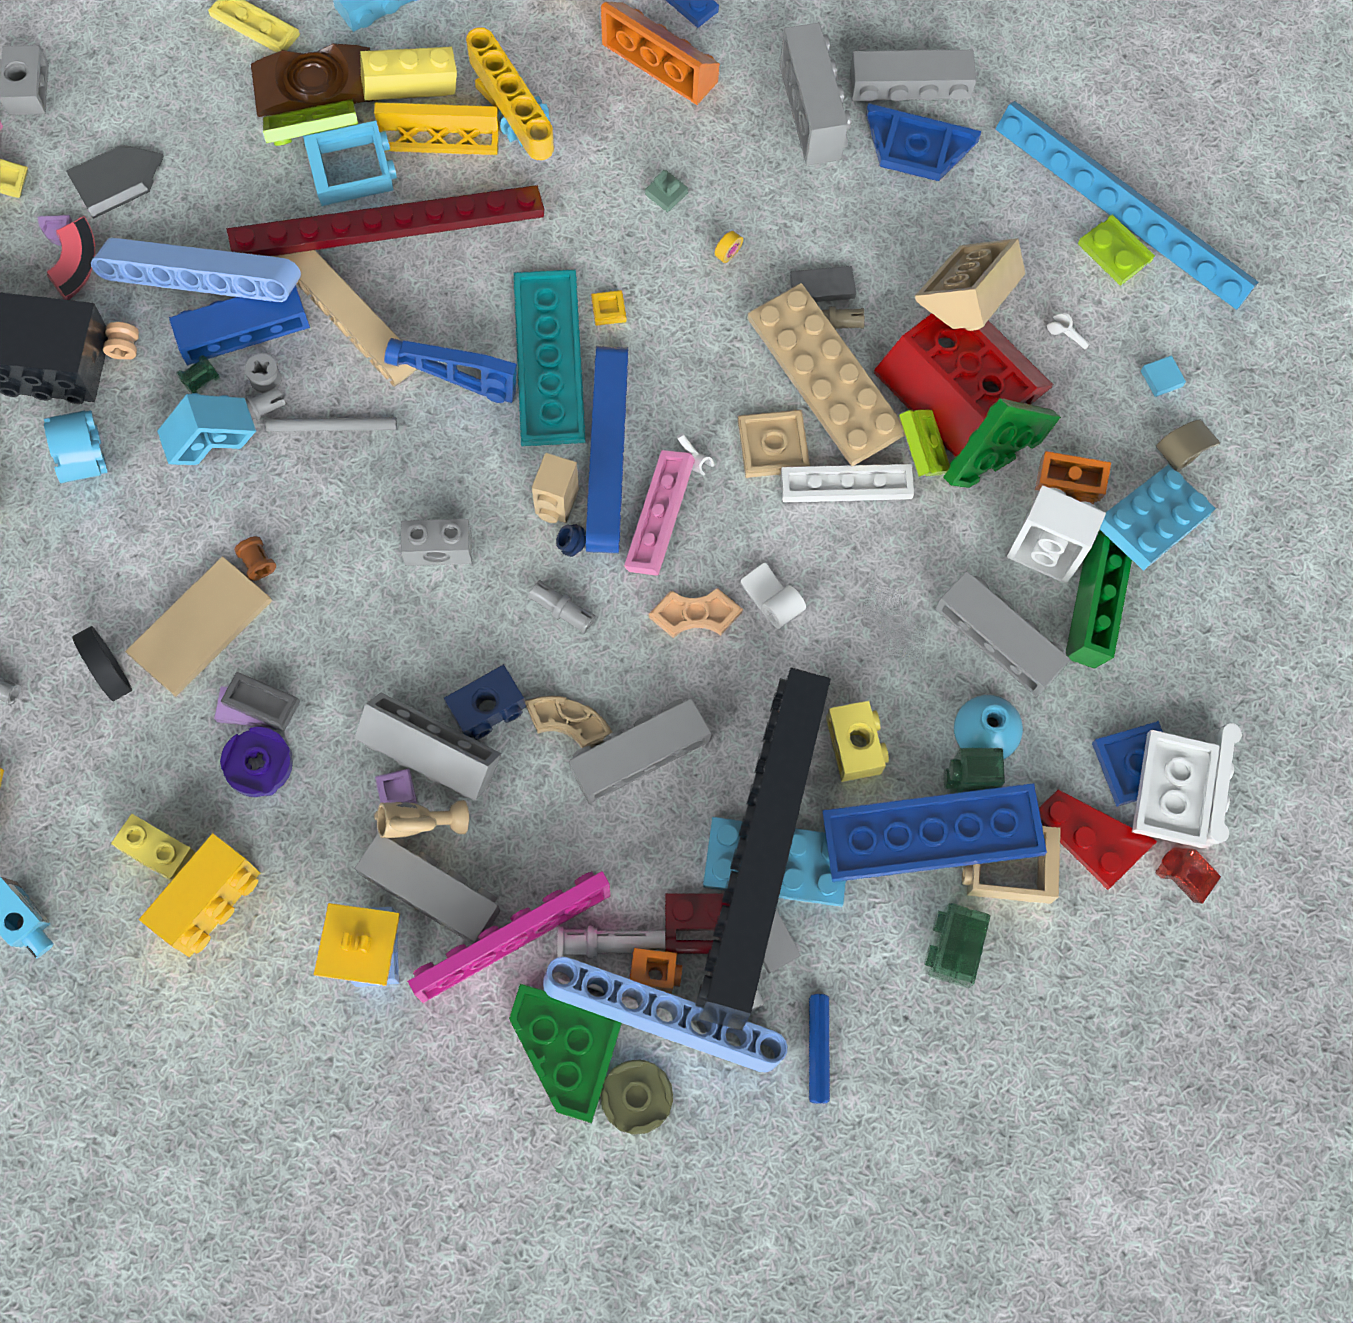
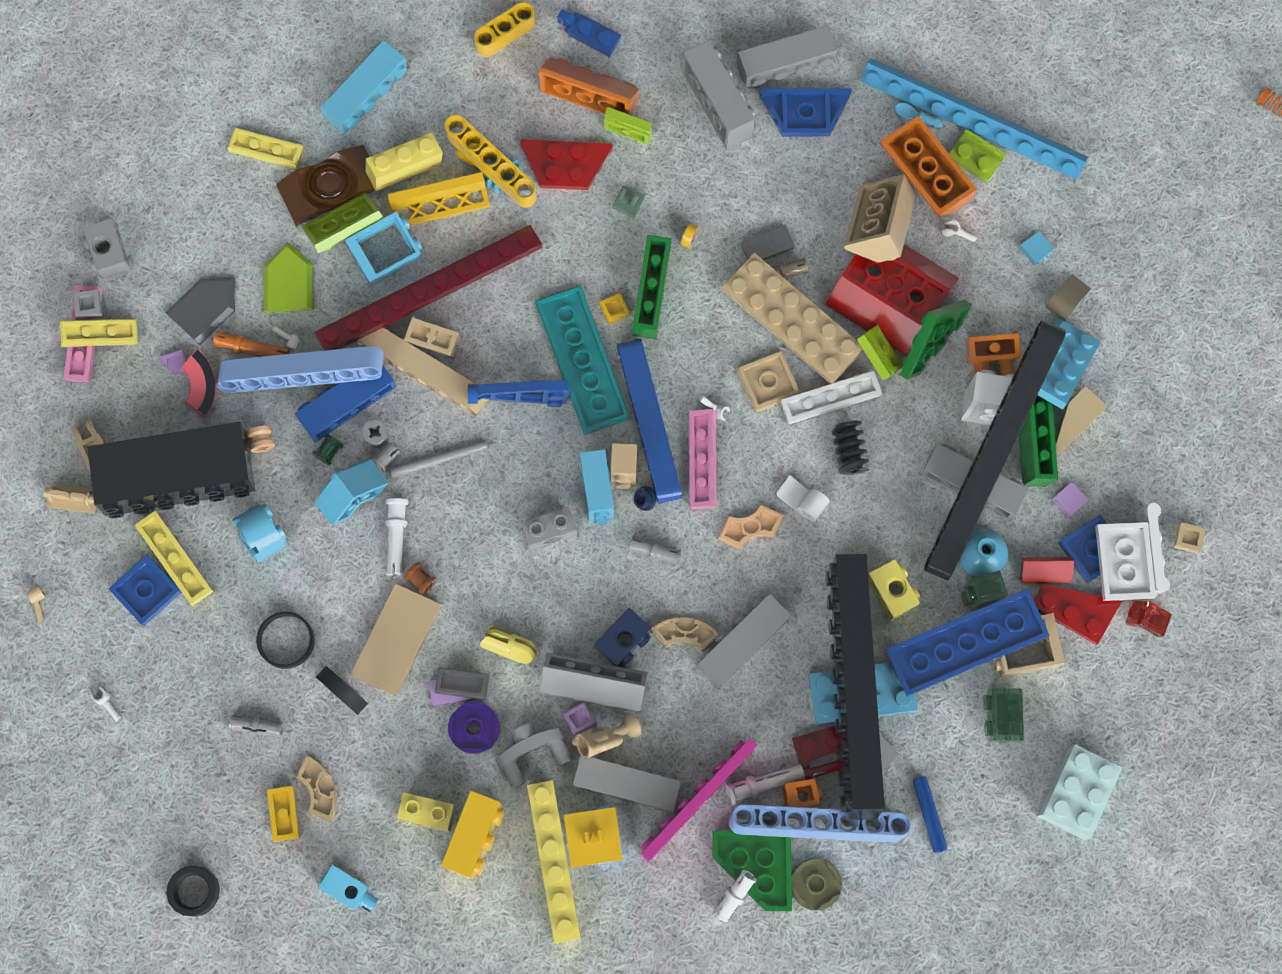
camera: 15 degrees left, 5 degrees up
(35, 782) = (320, 788): none -> tan tile
(43, 561) = (266, 622): none -> black tyre
(139, 227) = (240, 344): none -> orange pin
(203, 239) = (293, 343): none -> white hand
(224, 175) = (288, 282): none -> lime tile
(248, 486) = (396, 523): none -> white pin
(294, 966) = (553, 862): none -> light yellow brick
(315, 798) = (526, 740): none -> light grey connector
(337, 671) = (509, 645): none -> light yellow arm
(372, 278) = (432, 337): none -> tan hinge
(512, 505) = (597, 486): none -> medium azure window
(521, 1078) = (735, 895): none -> white pin
(605, 129) = (565, 162): none -> red wing
(661, 291) = (651, 287): none -> green brick
(693, 102) = (628, 125): none -> lime plate
(850, 549) = (848, 448): none -> black piece
(1032, 1077) = (1079, 792): none -> light aqua brick
(1039, 589) = (995, 449): none -> black beam
(1044, 178) = (907, 112): none -> medium azure piece
(1053, 242) = (929, 167): none -> orange slope
(1067, 772) = (1047, 569): none -> tile
(1123, 693) = (1070, 499): none -> lavender tile
(1164, 589) = (1077, 416): none -> tan slope
(1270, 785) = (1189, 537): none -> tan plate

